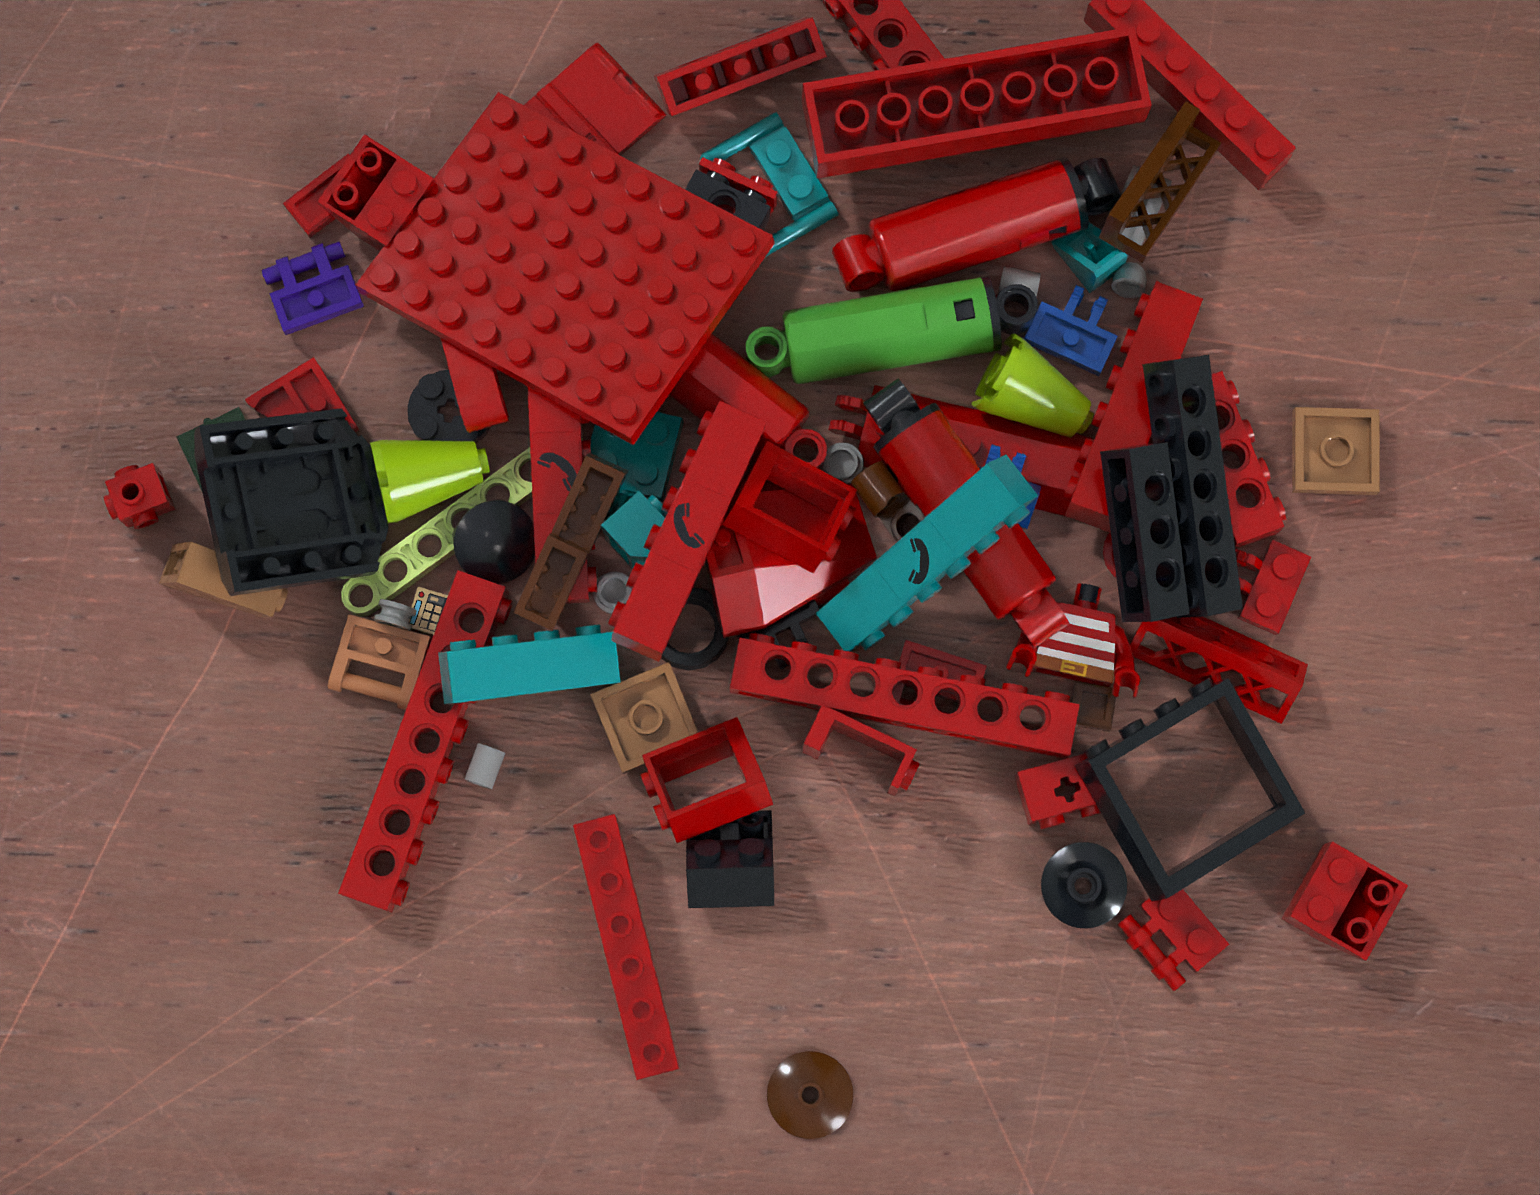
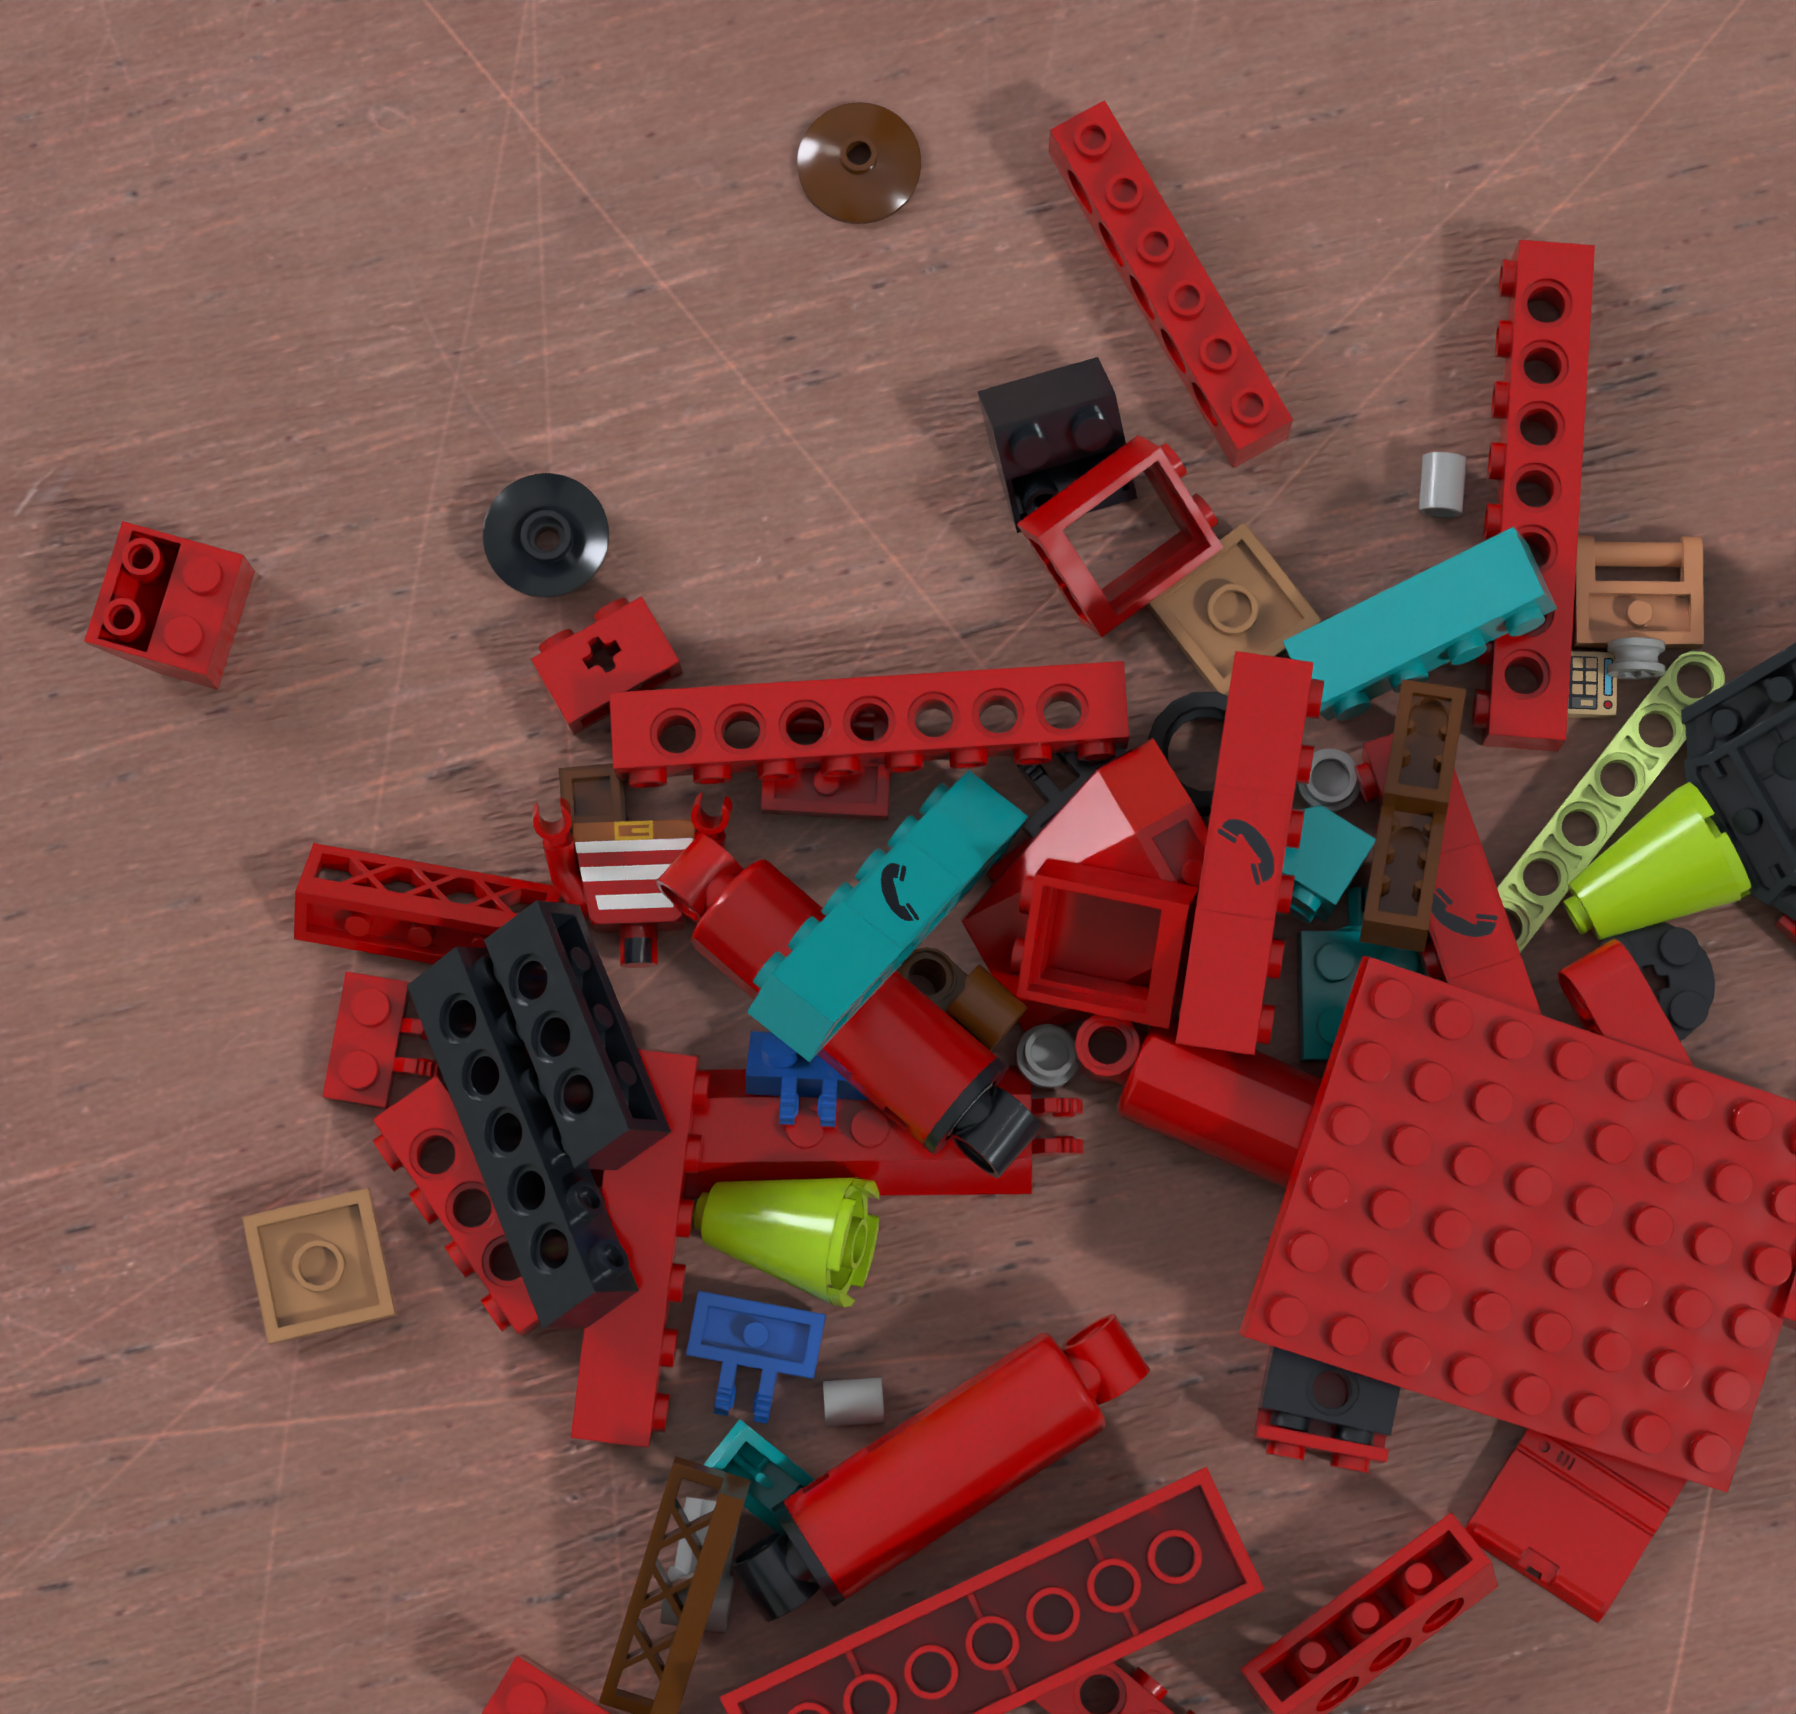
camera: 170 degrees right, 0 degrees up
(495, 541) = (1526, 803): black dish -> none
(786, 171) = (1250, 1486): teal plate -> none
(830, 719) = (904, 653): red panel -> none
(892, 330) = (1029, 1267): bright green piece -> none
(1126, 829) = (359, 630): black window -> none
(1129, 280) = (687, 1443): light grey hinge -> none
(1183, 927) = (392, 521): red plate -> none

